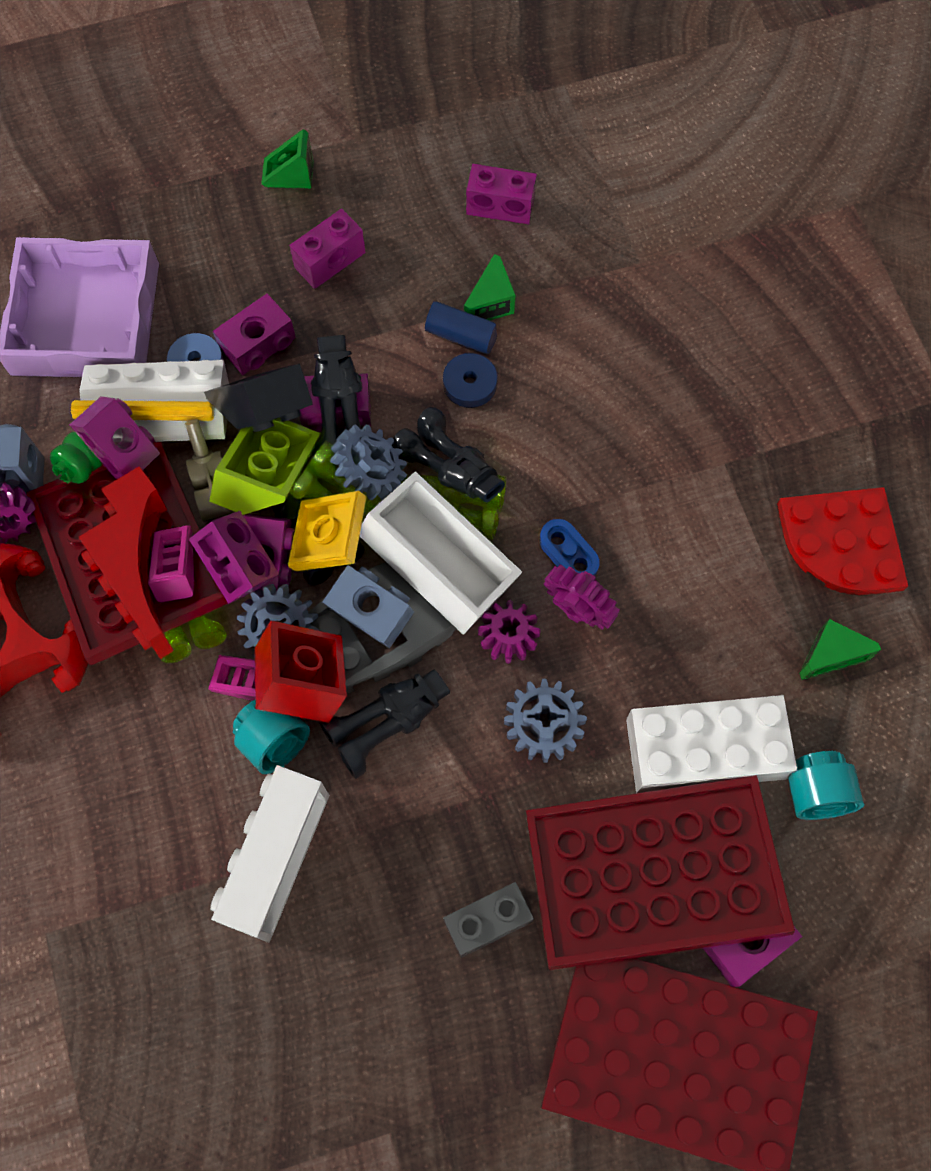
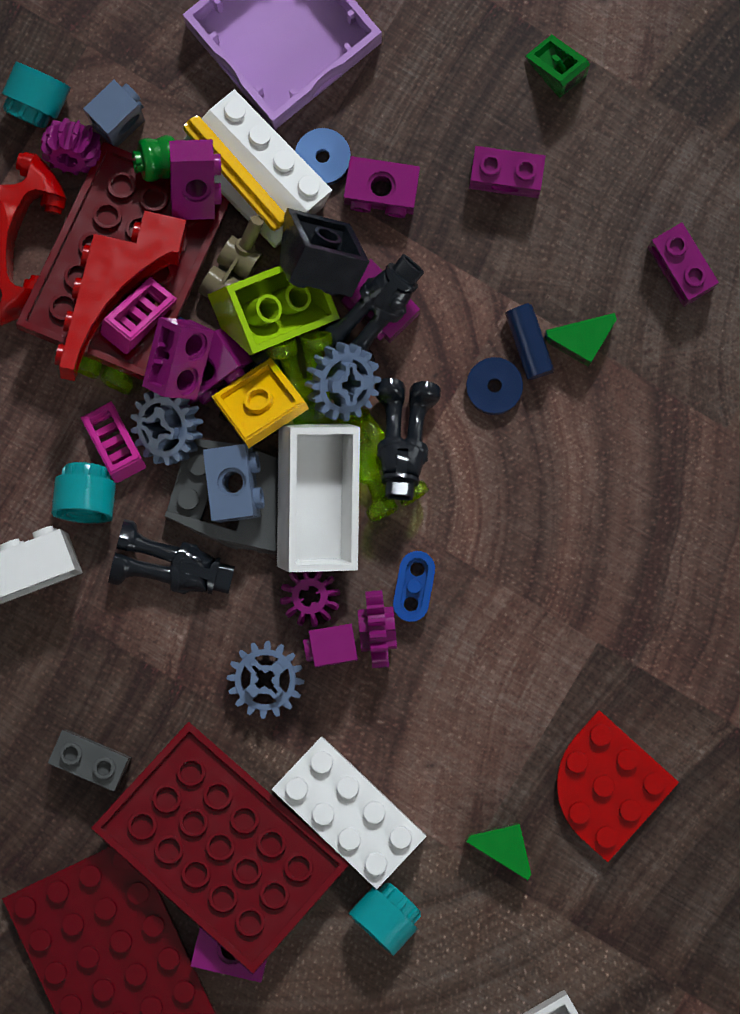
camera: 50 degrees right, 15 degrees up
(299, 672) = (139, 480): red brick -> none
(564, 641) = (331, 646): none -> magenta brick

